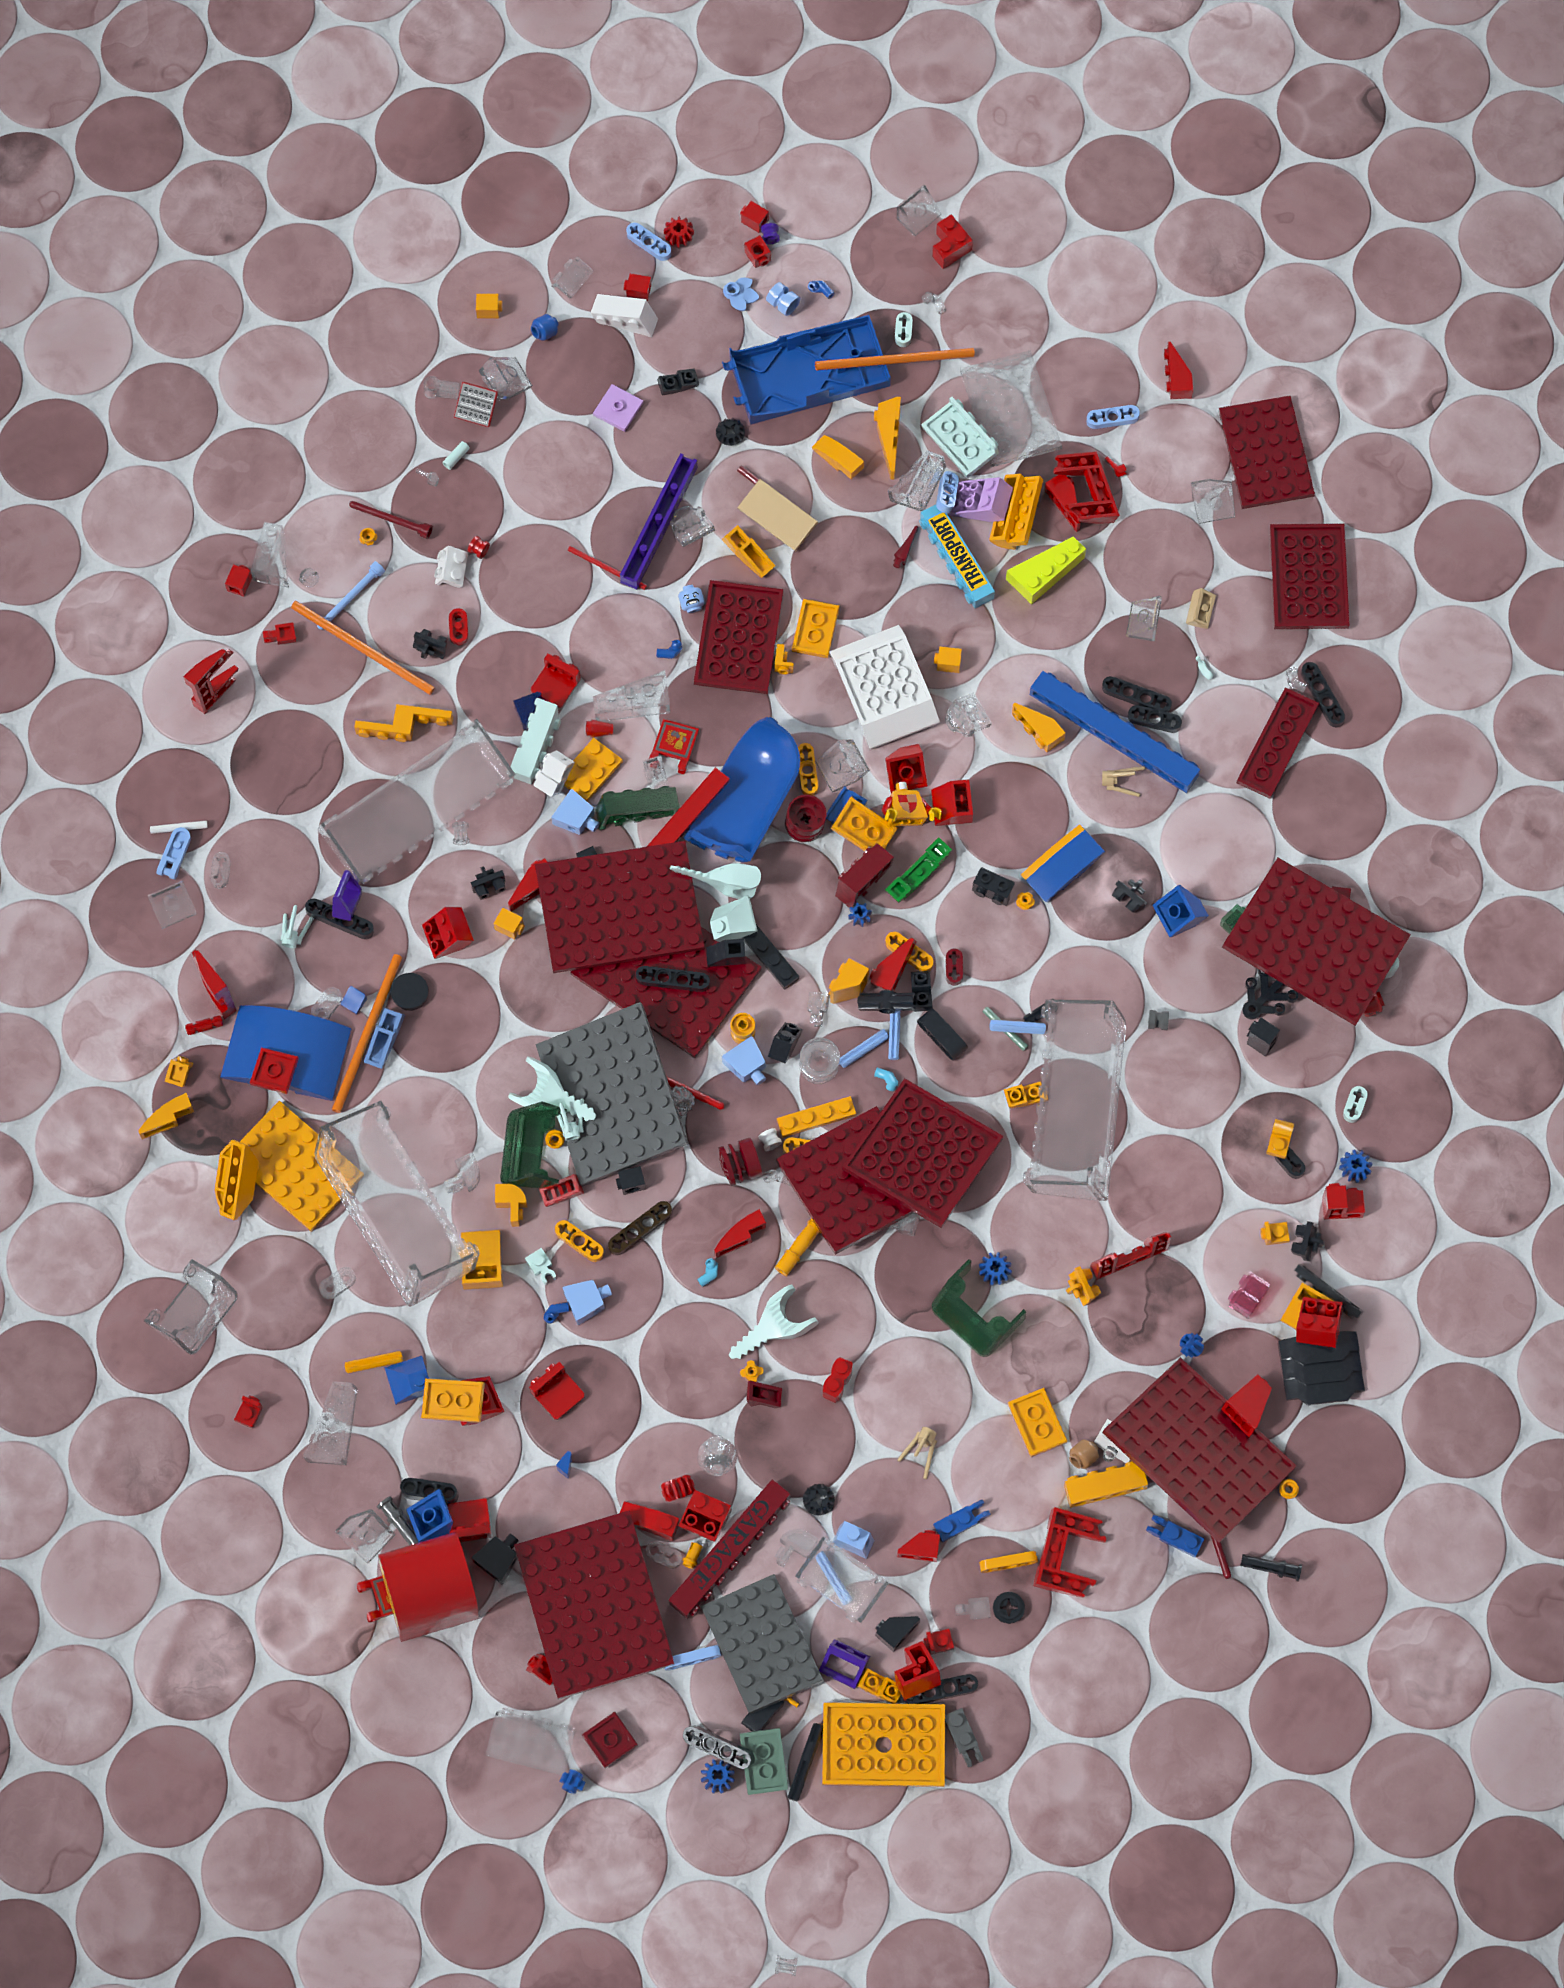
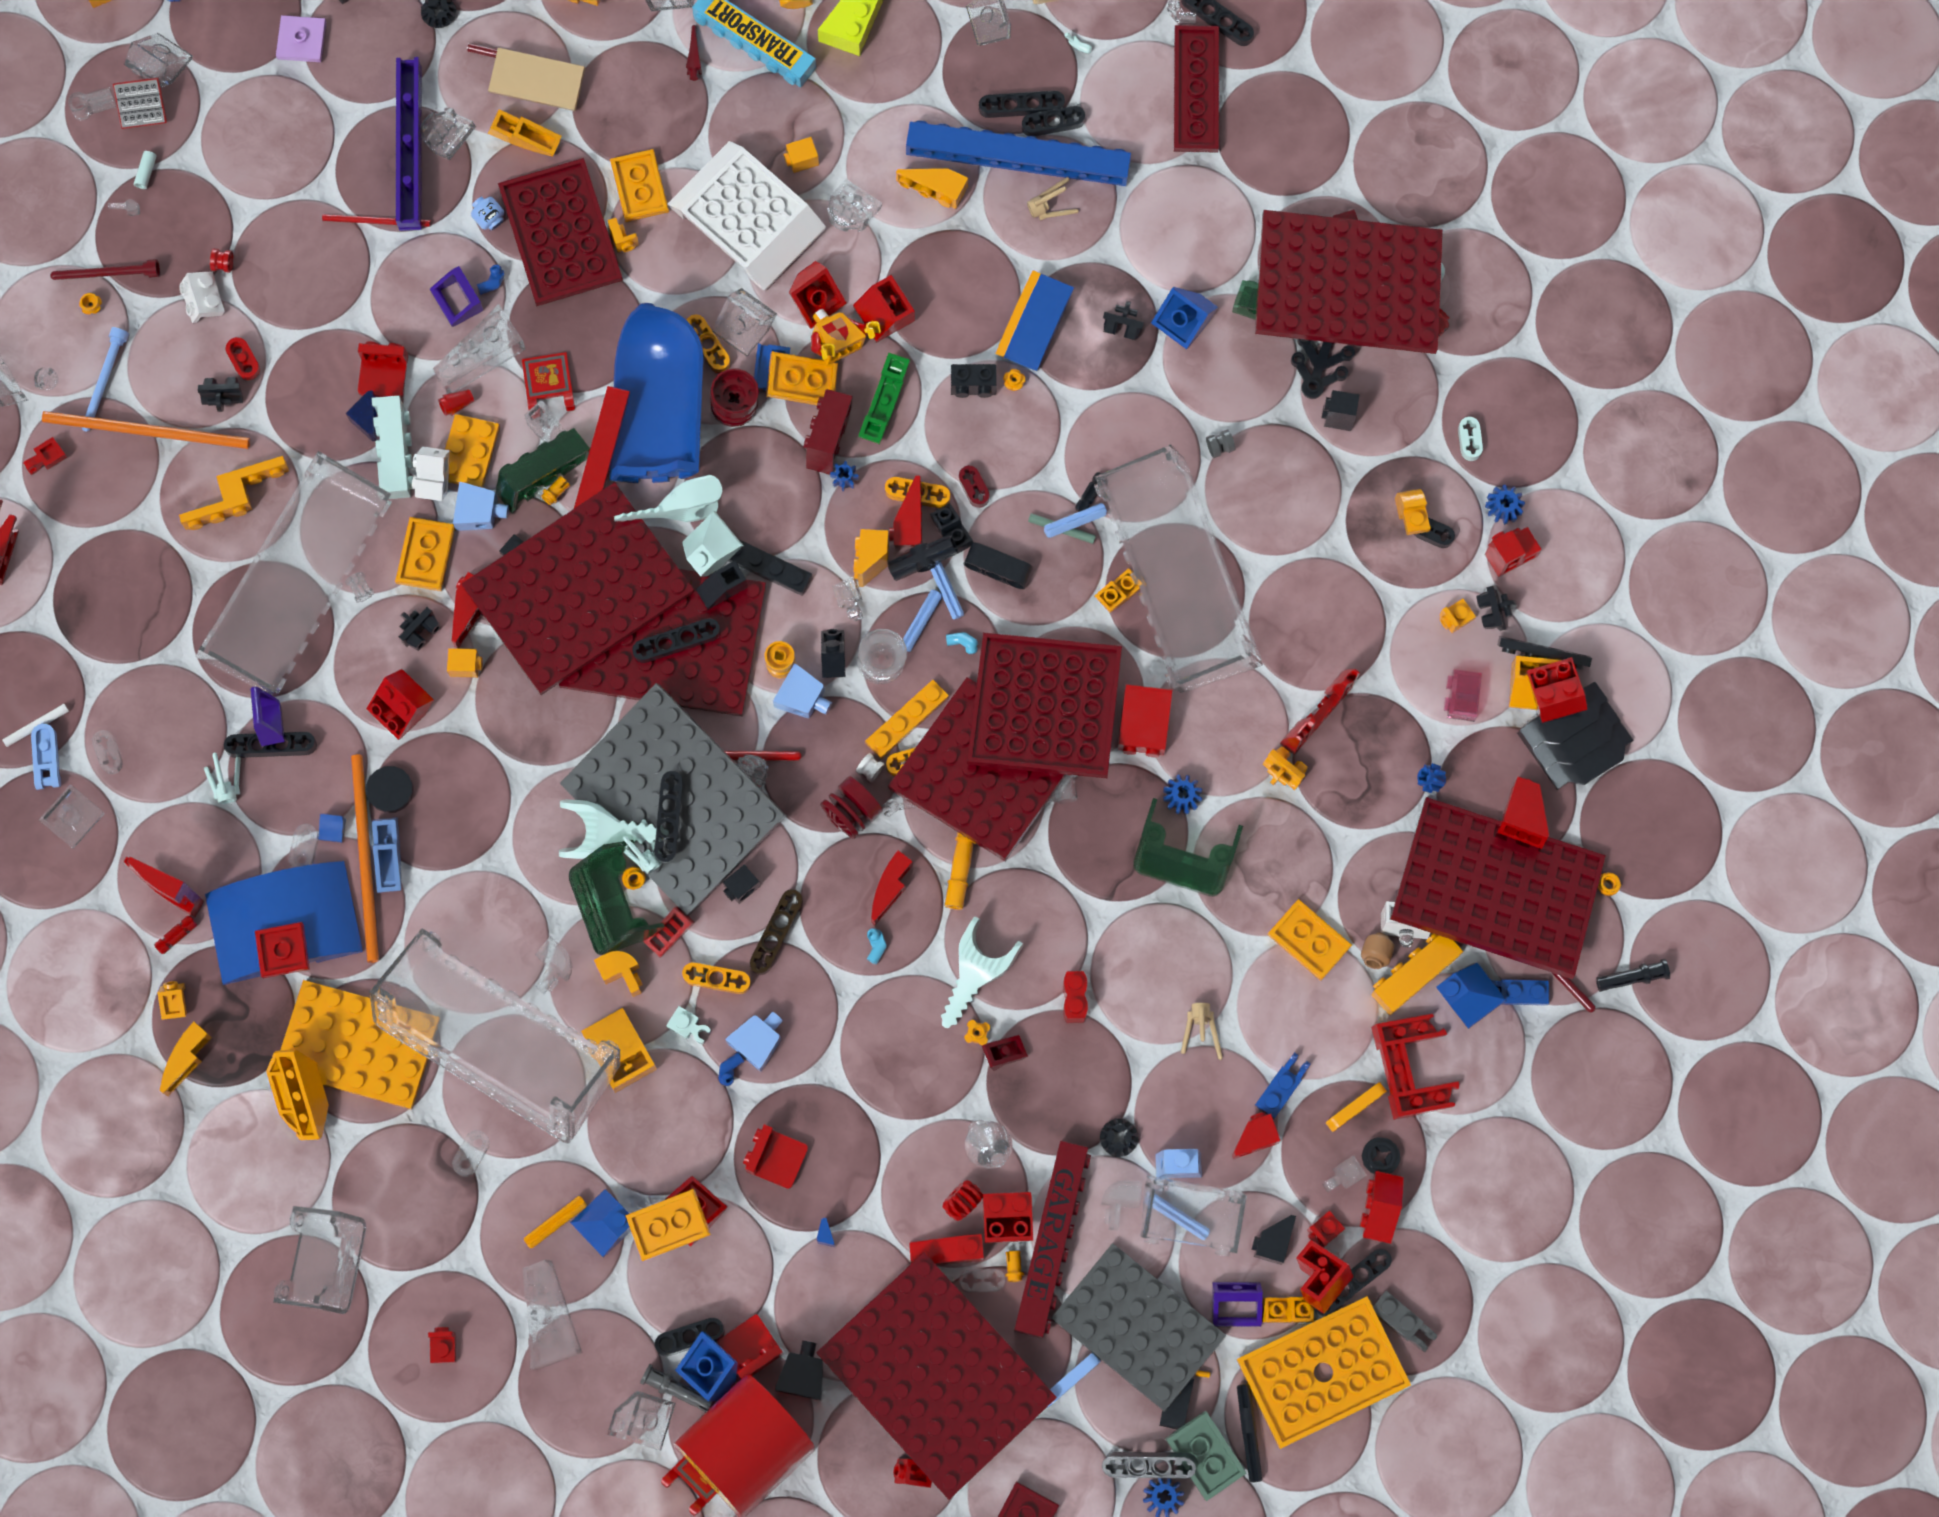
camera: 30 degrees left, 5 degrees up
(521, 831) = (425, 554): none -> light orange tile
(602, 1105) = (665, 816): none -> black beam
(640, 827) = (555, 490): none -> light orange pin
(647, 664) = (474, 307): none -> dark purple tile
(989, 1643) = (1382, 1207): none -> red brick
(993, 1200) = (1144, 720): none -> red slope
(1138, 1519) = (1471, 994): none -> blue slope

